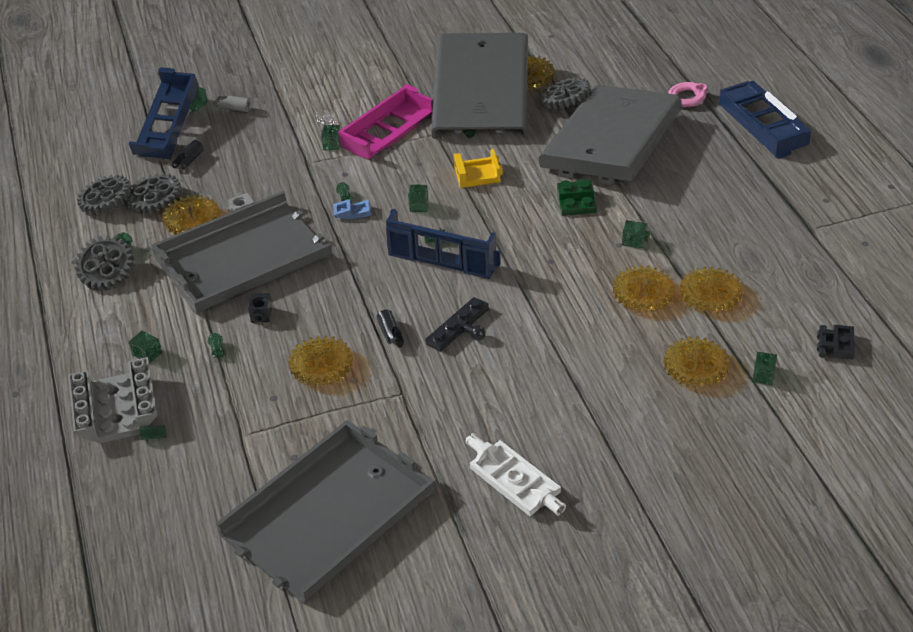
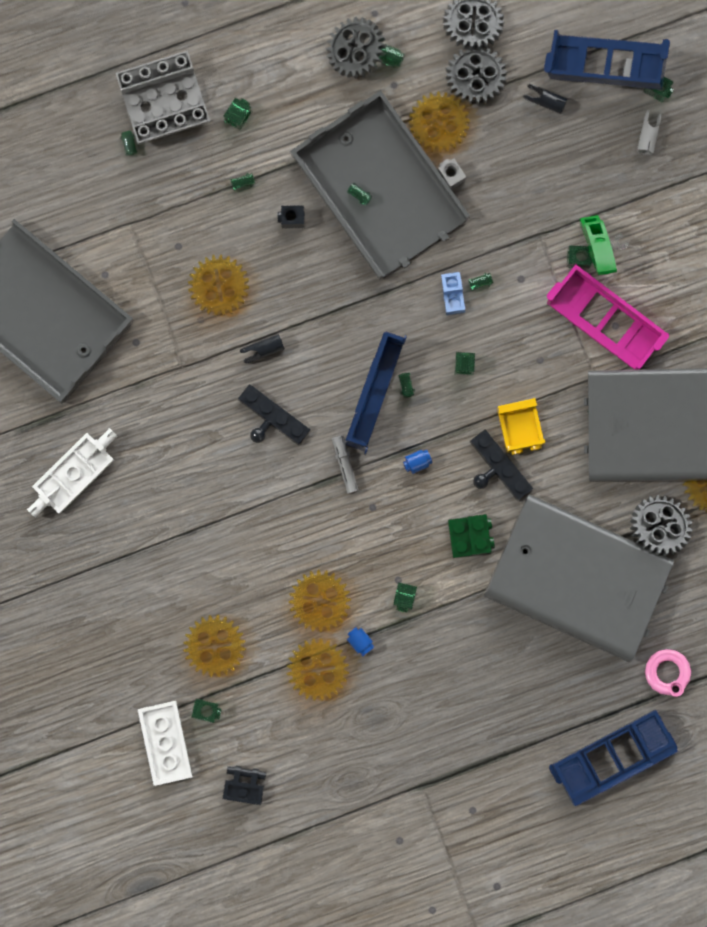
camera: 85 degrees right, 40 degrees up
(248, 261) = (358, 193): none -> clear green pin
(327, 112) = (599, 245): none -> slope
(506, 274) = (345, 465): none -> light grey pin
(507, 227) = (417, 461): none -> blue brick
(513, 181) = (499, 465): none -> black plate
(680, 262) = (360, 641): none -> blue brick
(804, 400) = (165, 743): none -> white plate

